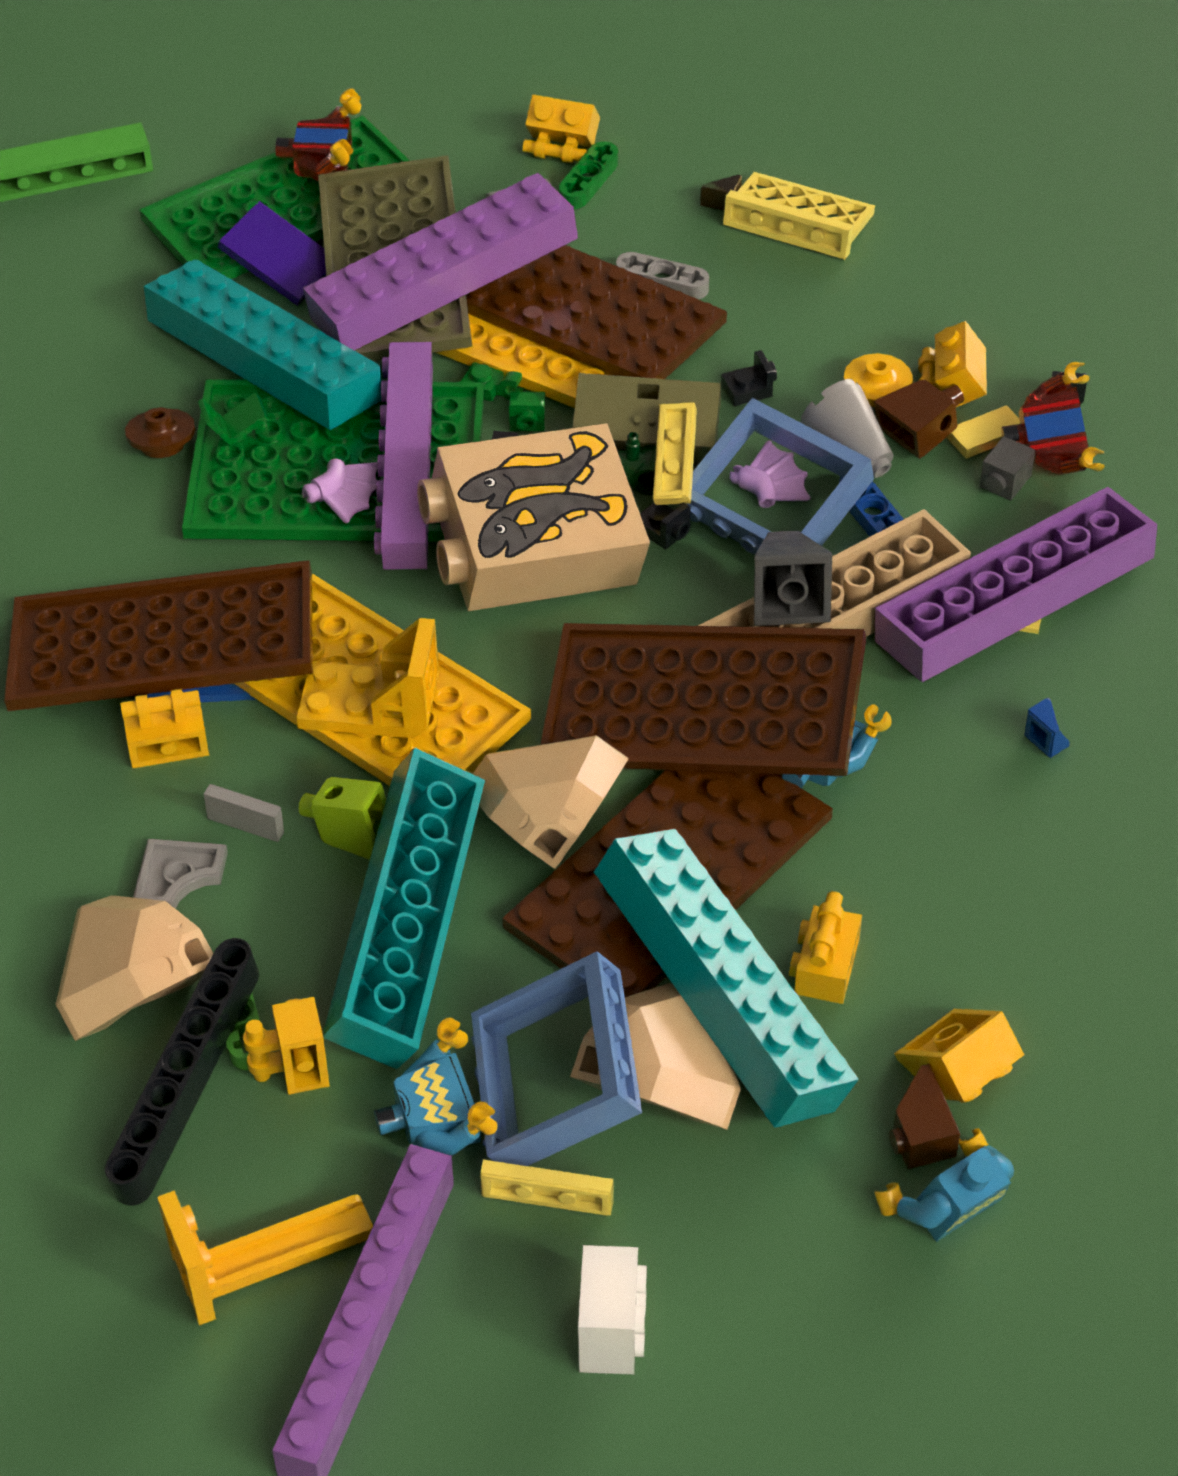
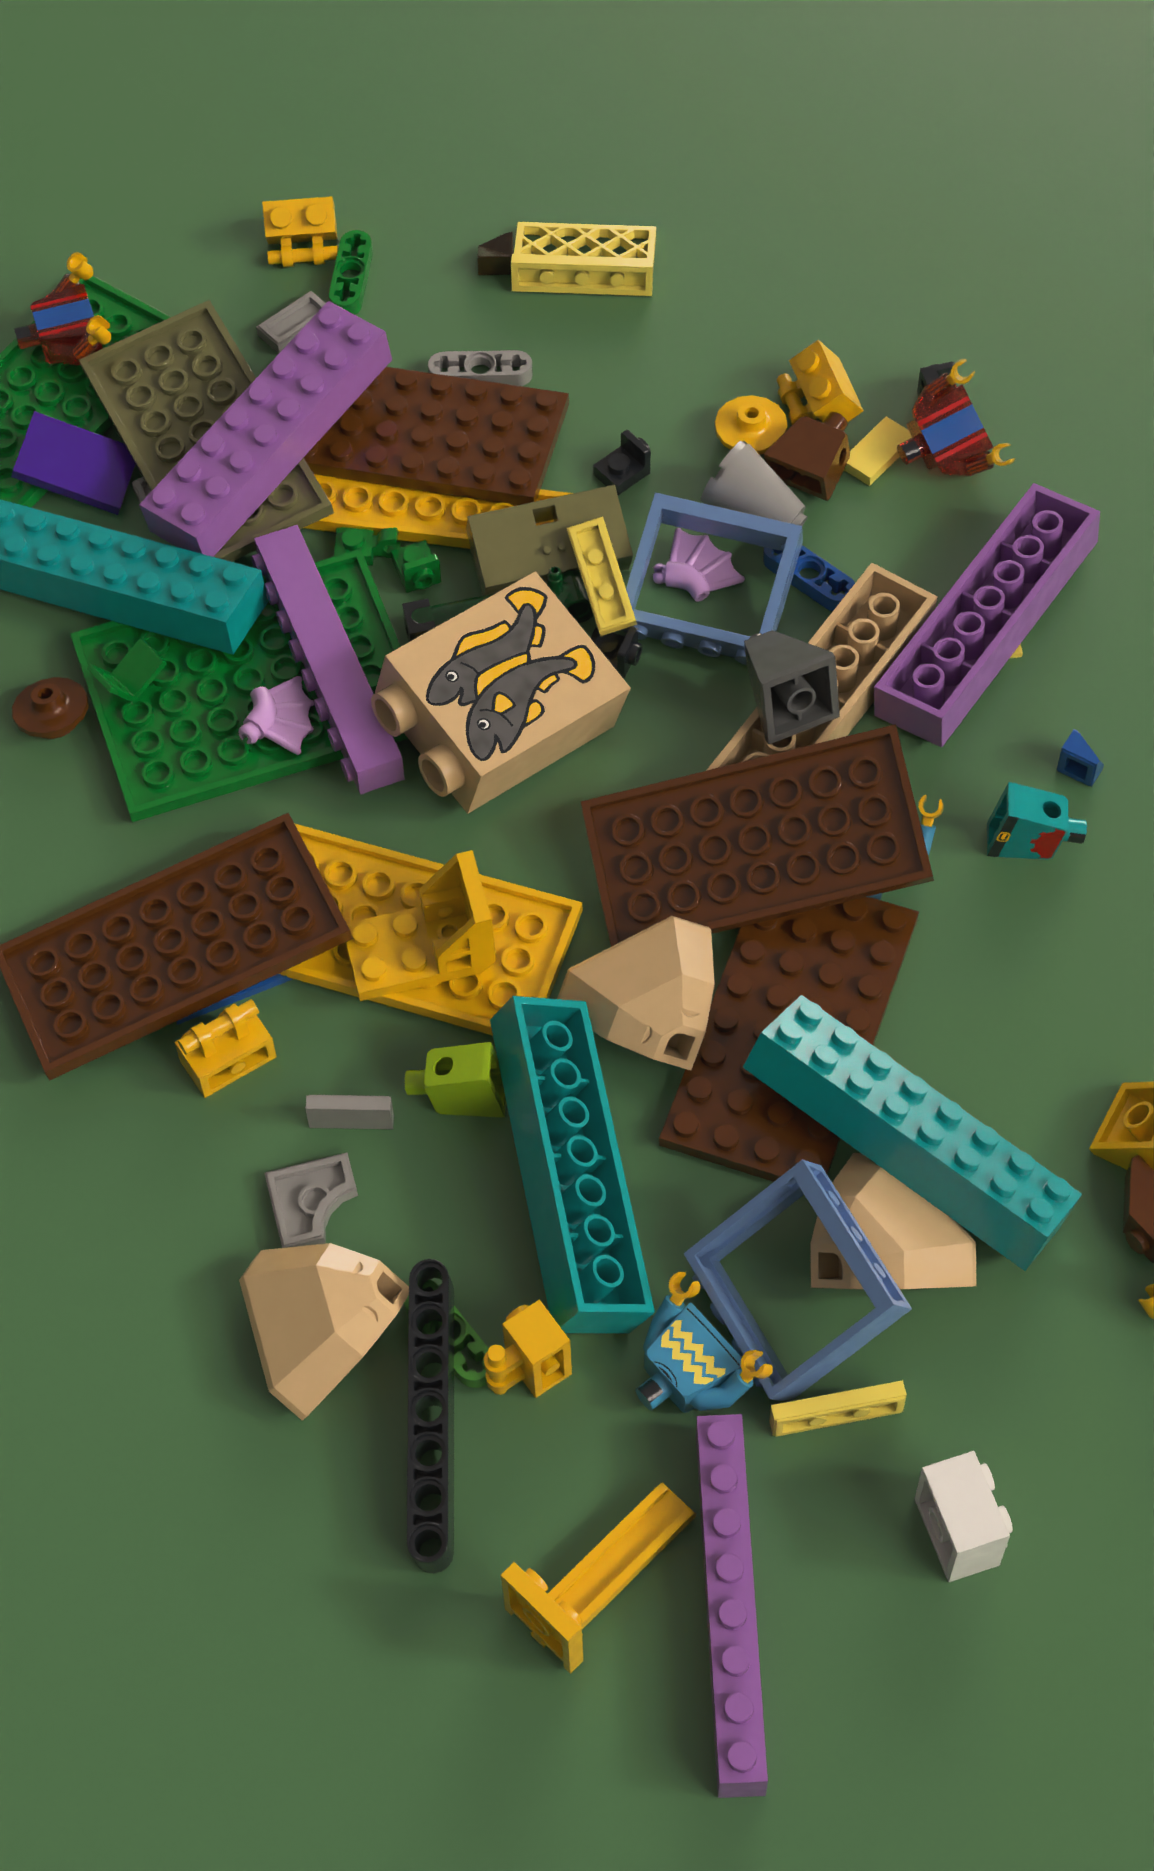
camera: 20 degrees left, 10 degrees up
(827, 951) = (985, 1067): yellow brick -> none
(970, 764) = (1031, 824): none -> teal torso
(1007, 468) = (919, 487): dark grey brick -> none

